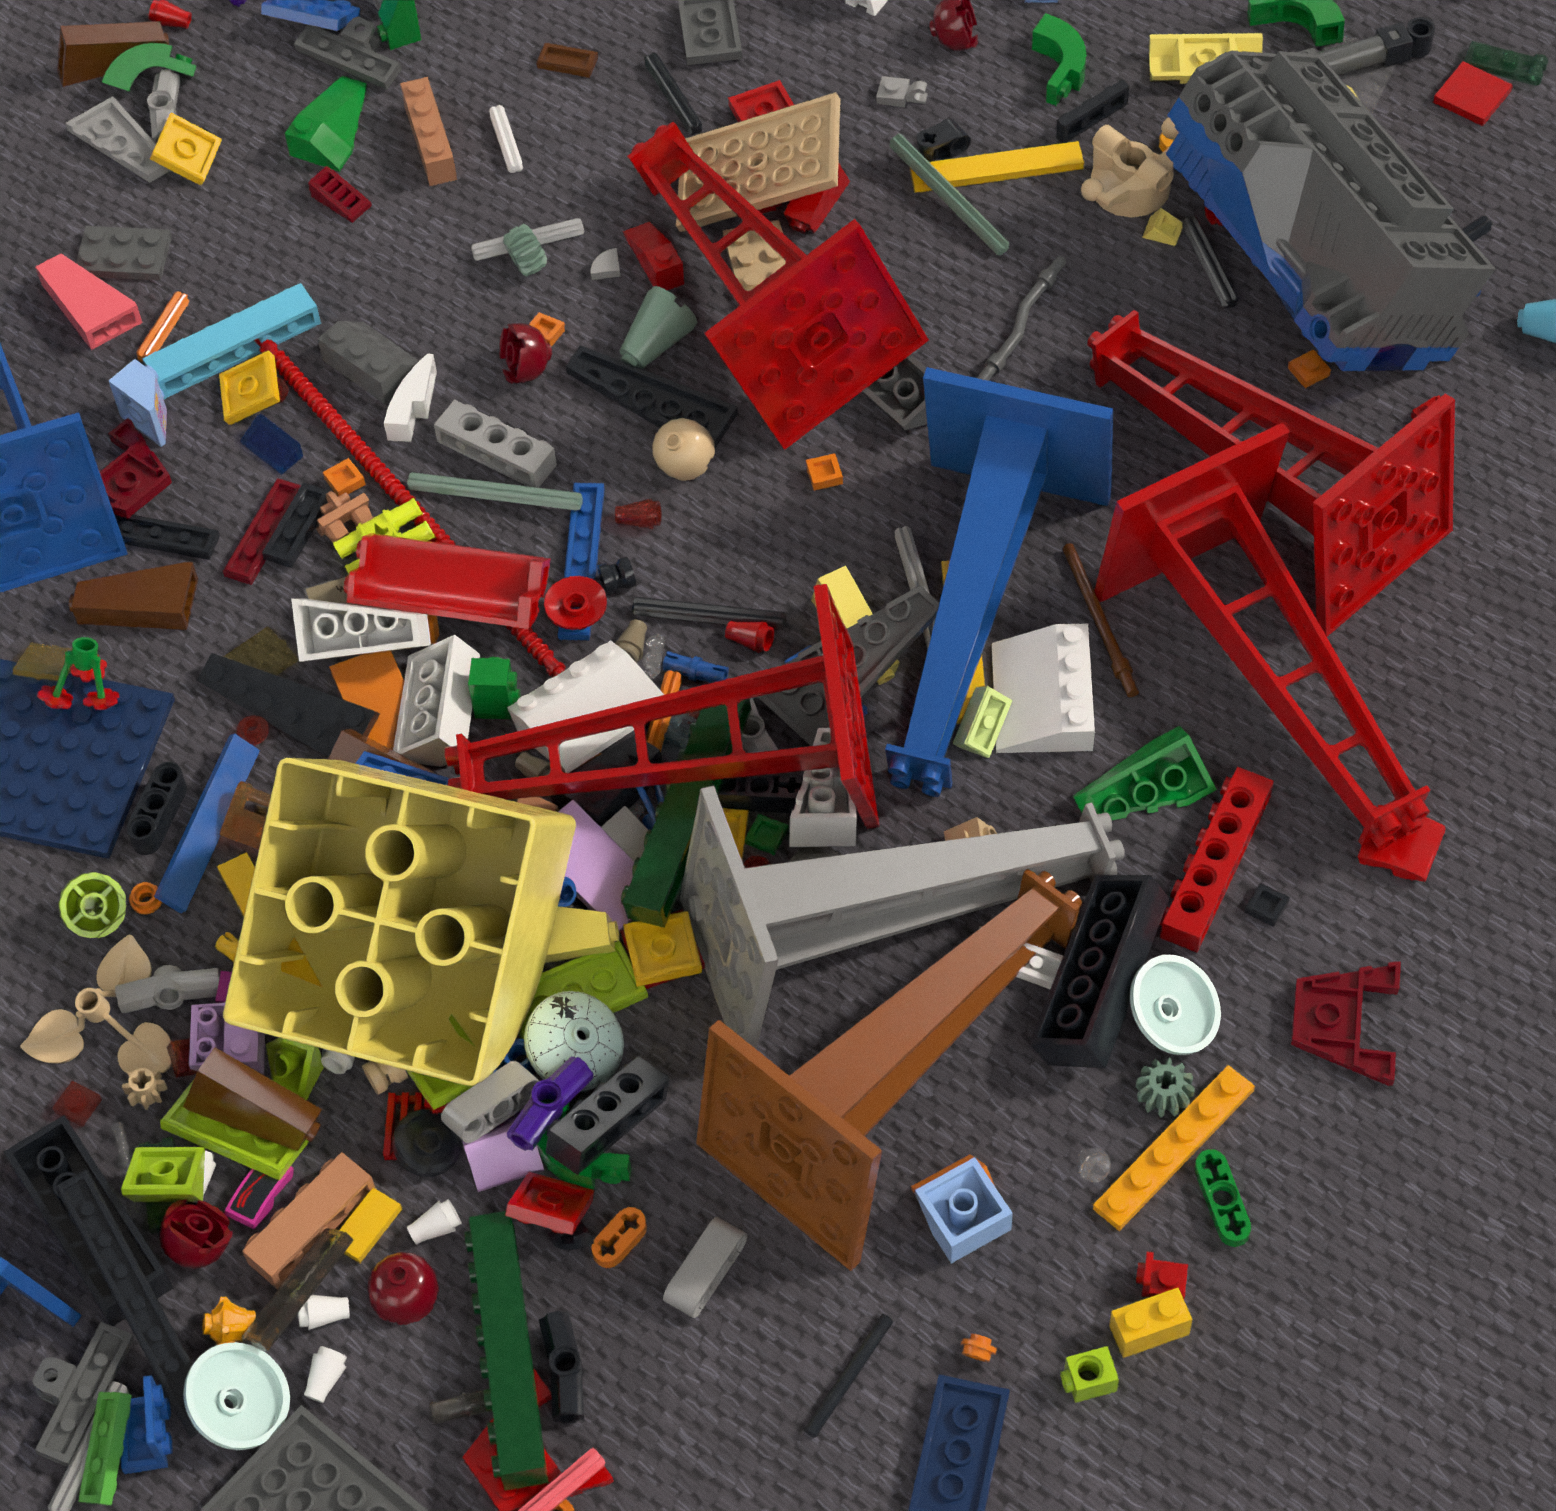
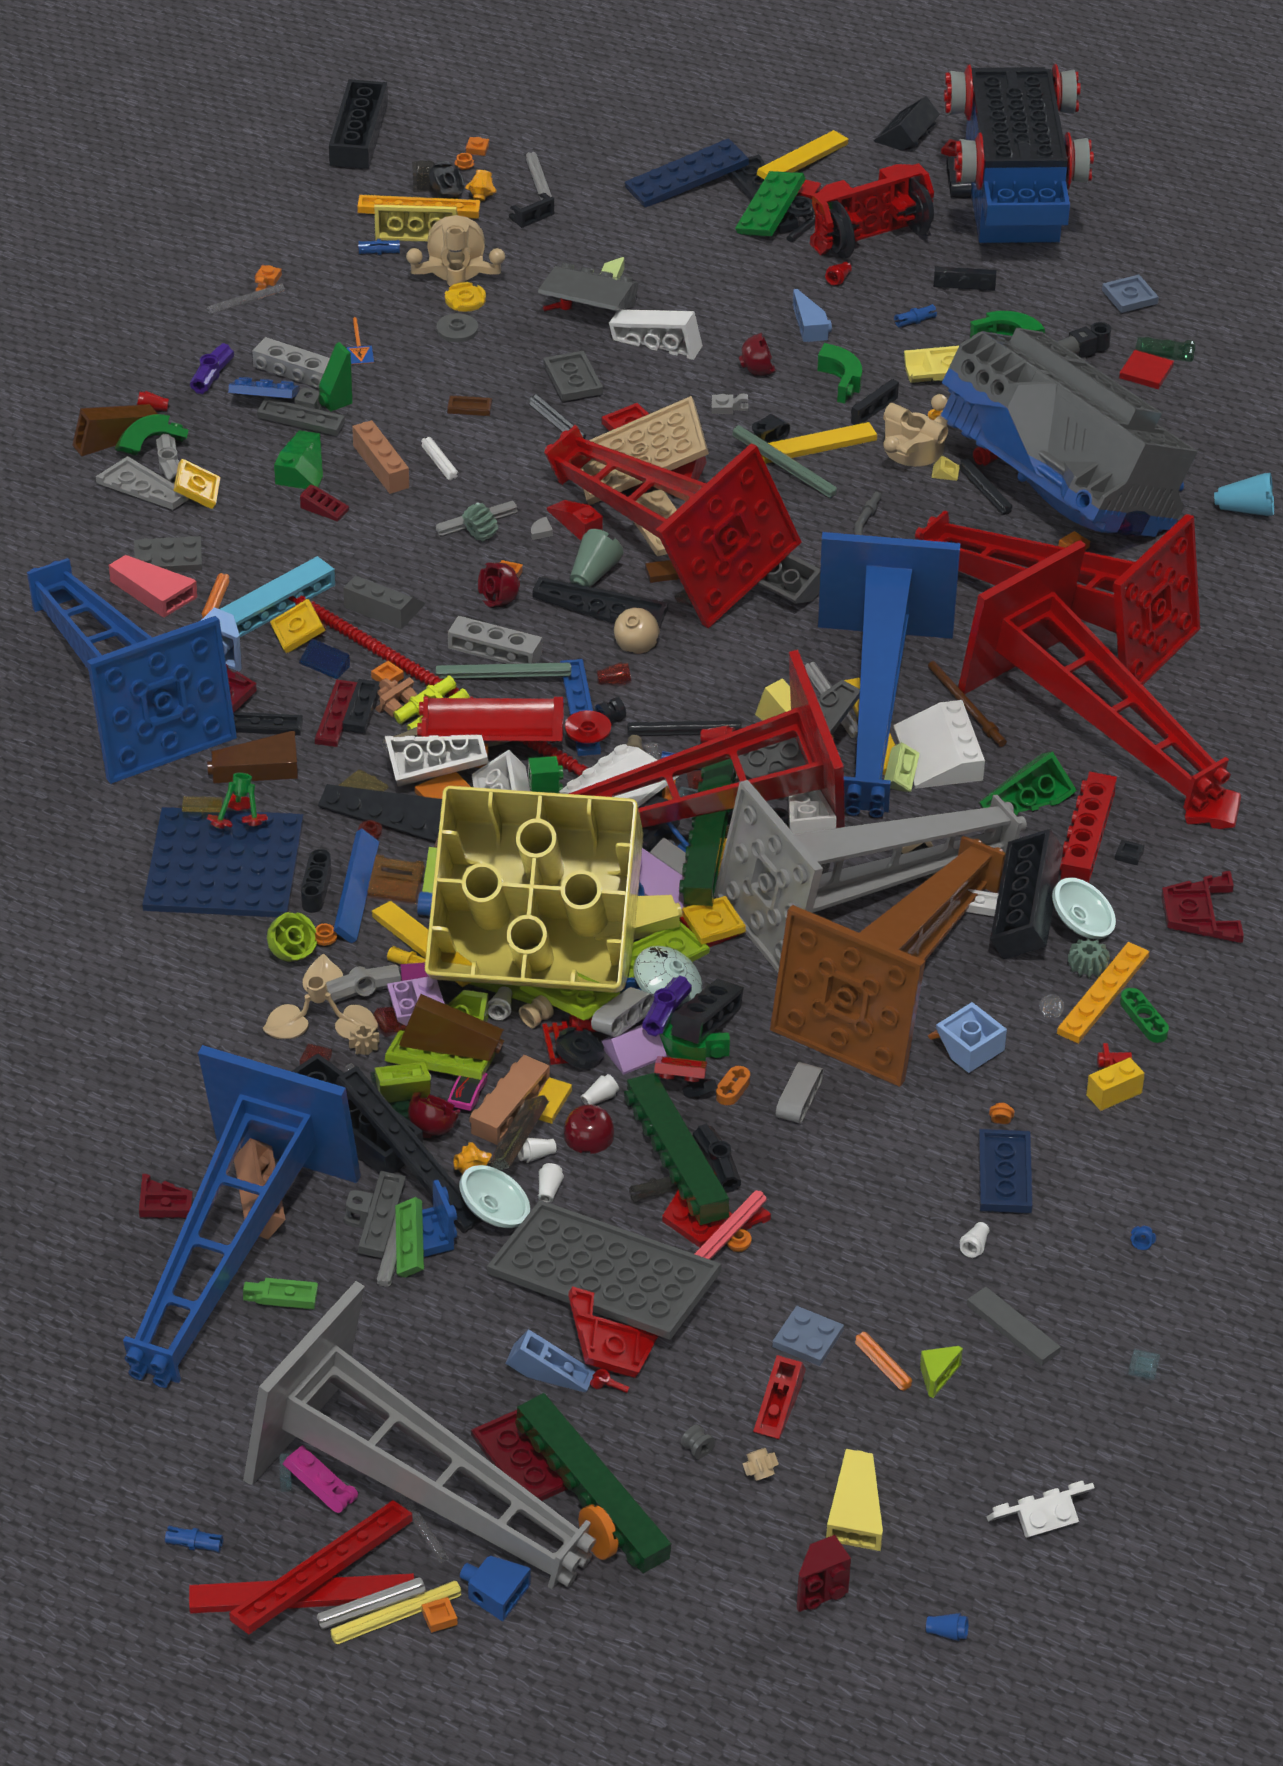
camera: 15 degrees left, 15 degrees down
(411, 400) = (423, 623): white slope -> none
(824, 472) = (743, 636): orange plate -> none
(848, 1376) = (916, 1141): black bar -> none
(1096, 1361) = (1082, 1117): lime brick -> none

